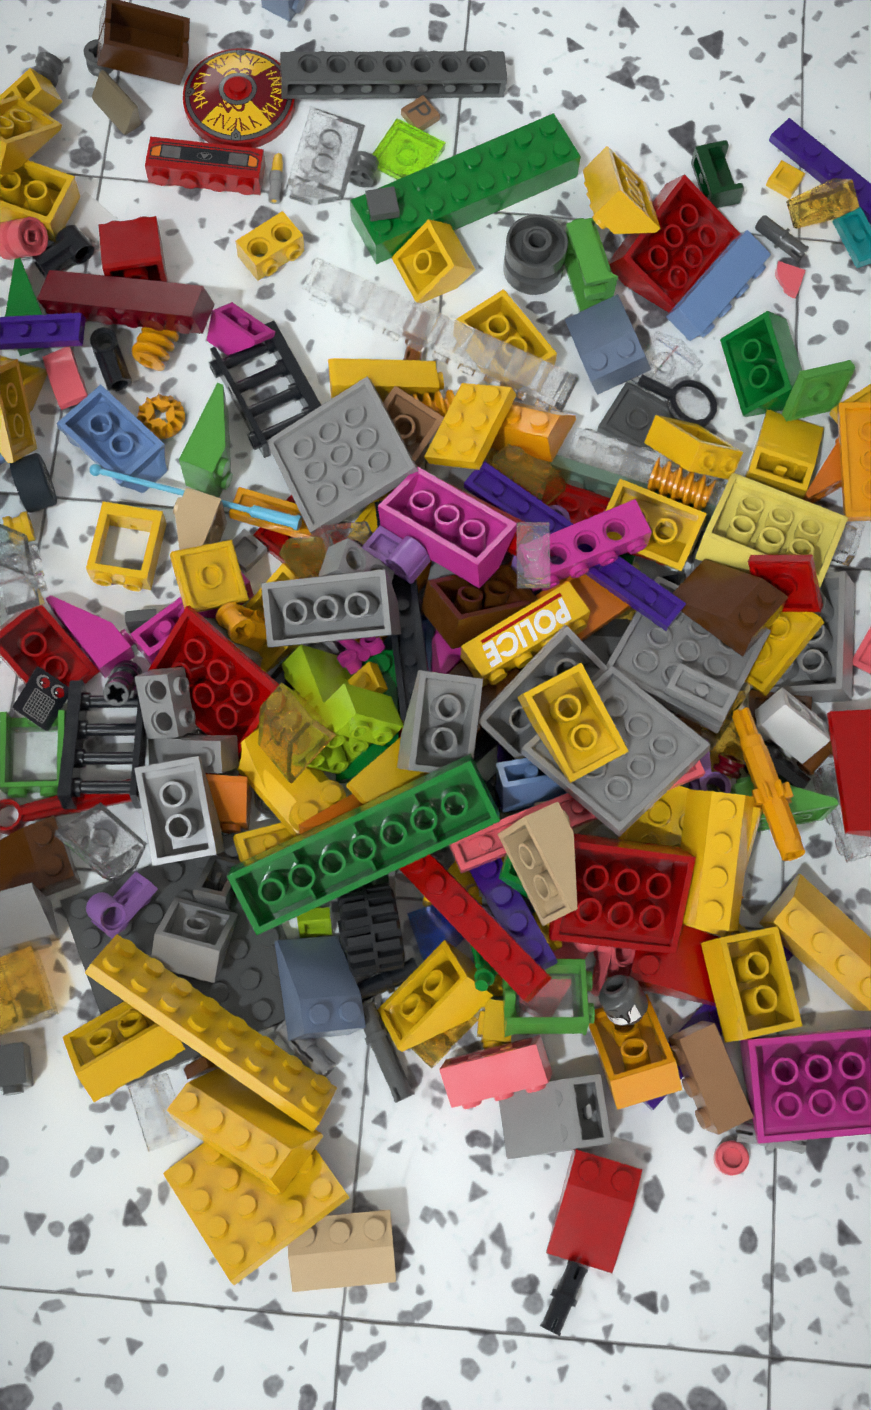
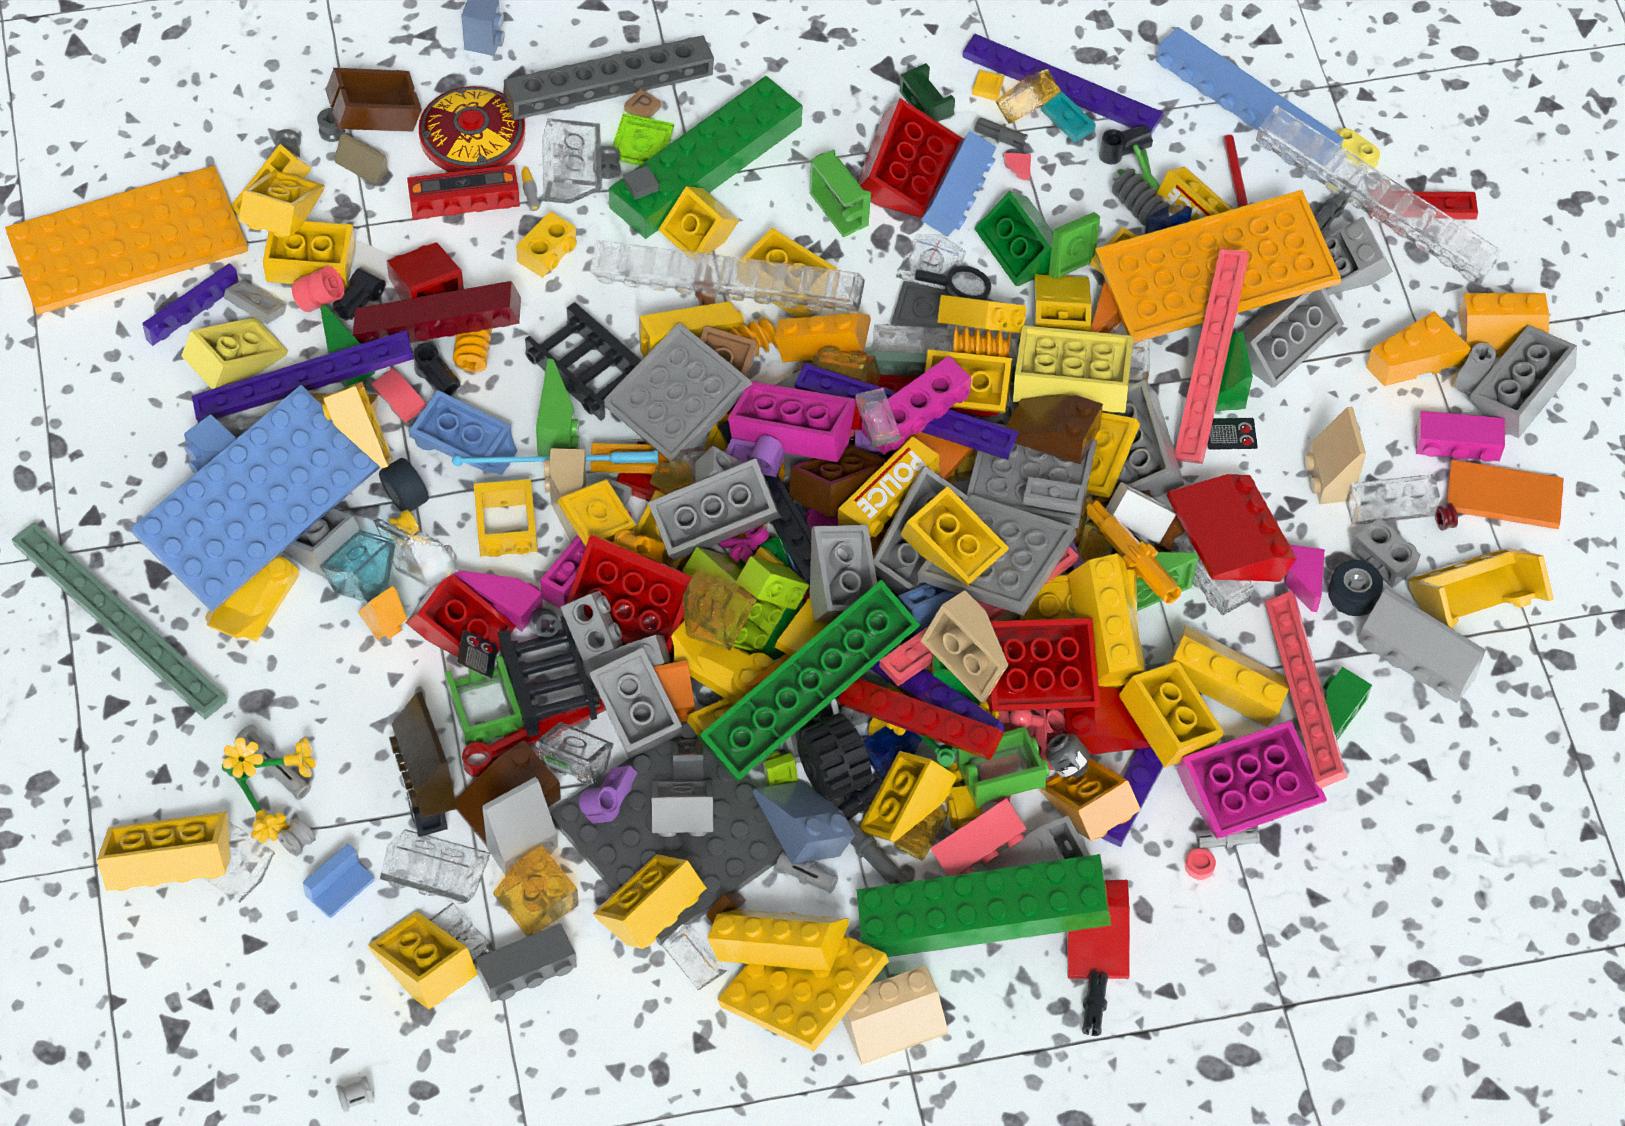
camera: 15 degrees left, 15 degrees down
(136, 618) = (537, 571): dark grey tile -> none
(175, 416) = (509, 405): light orange gear -> none
(213, 1031) = (739, 867): yellow plate -> none
(235, 329) = (543, 318): dark pink slope -> none
(470, 426) = (783, 340): yellow plate -> none
(475, 1160) = (984, 906): none -> green brick
(535, 254) = (788, 195): dark grey wheel -> none
(607, 344) = (878, 253): sand blue slope -> none
(618, 196) = (846, 128): yellow slope -> none
(710, 1078) = (1163, 800): medium nougat brick -> none
(729, 765) = (1095, 552): dark red bush -> none
(792, 576) = (1103, 387): red tile -> none

